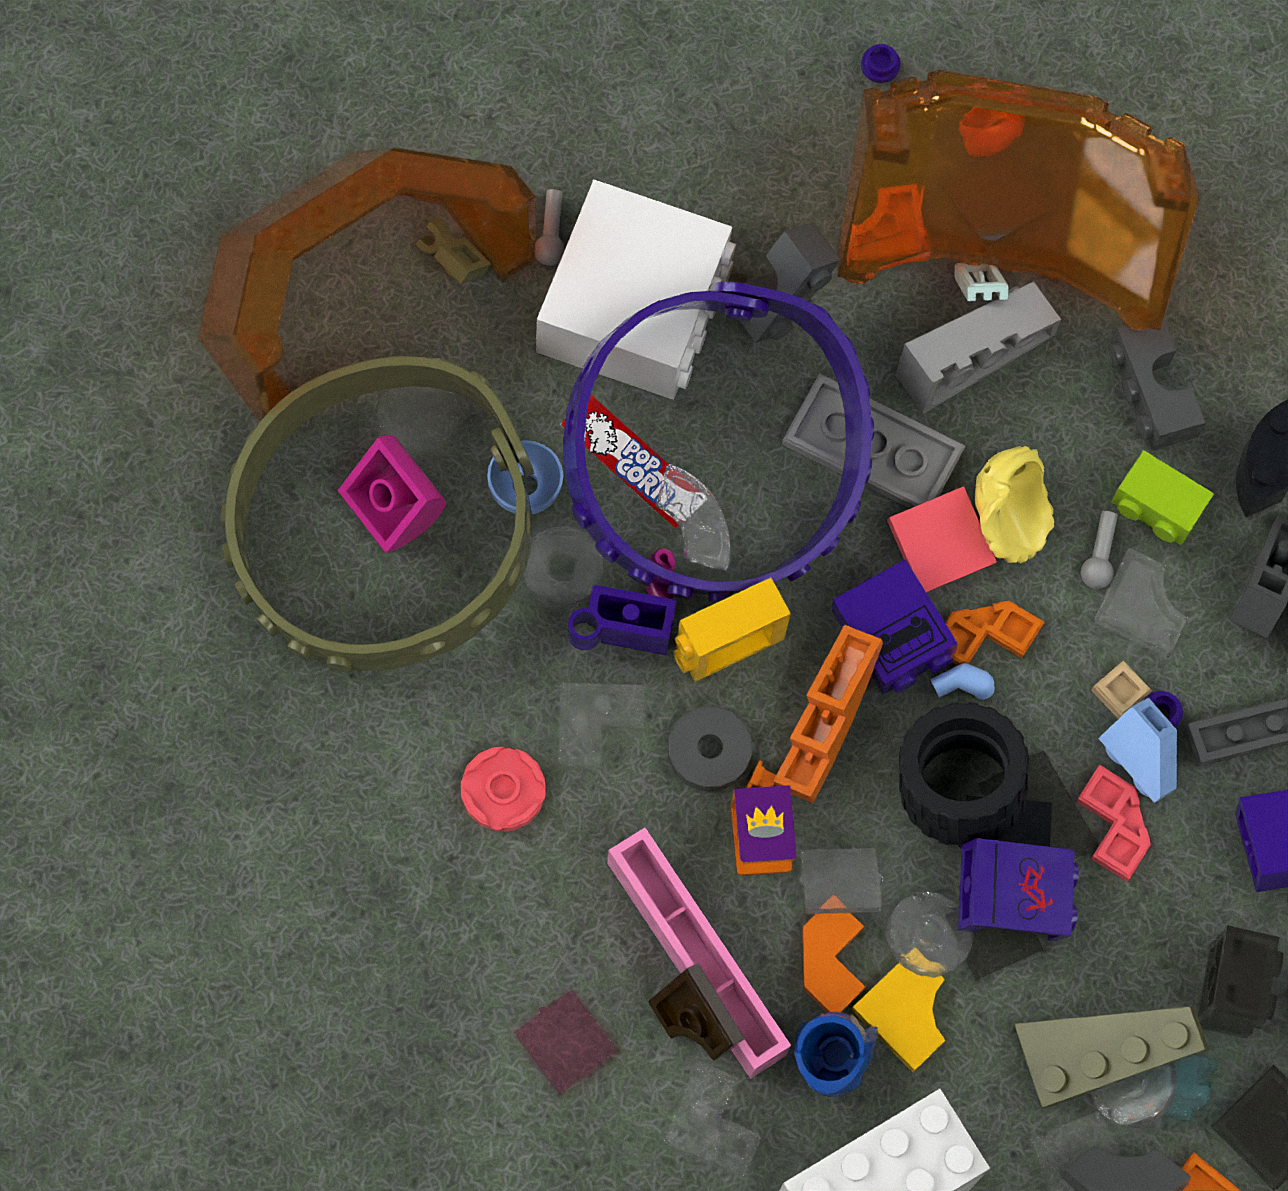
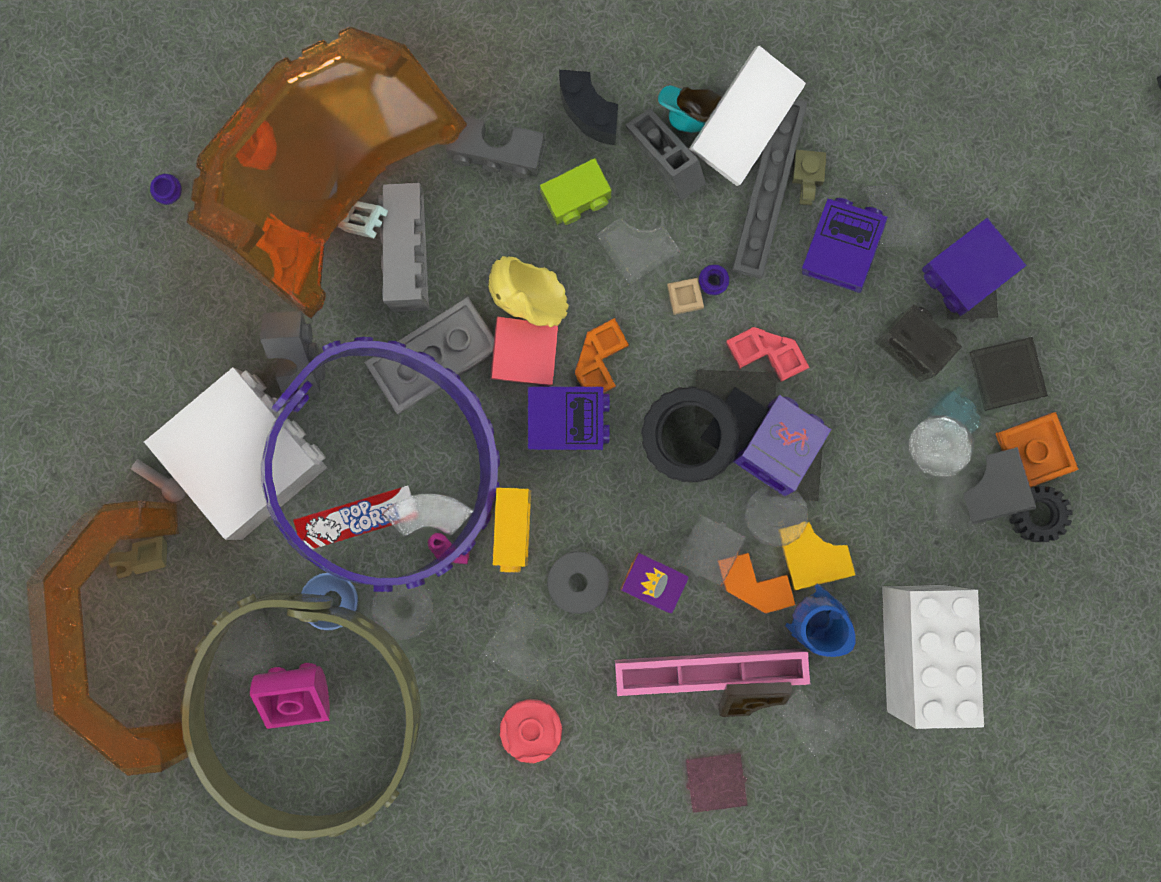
camera: 50 degrees left, 15 degrees up
(624, 620) = (465, 592): dark purple hinge -> none
(760, 777) = (615, 560): orange piece -> none
(830, 712) = (600, 494): orange slope -> none
(967, 678) = (623, 392): light blue arm -> none
(1097, 570) = (597, 262): light grey bar -> none
(1102, 1050) = (914, 452): olive wing -> none
(1146, 749) = (735, 307): light blue slope -> none

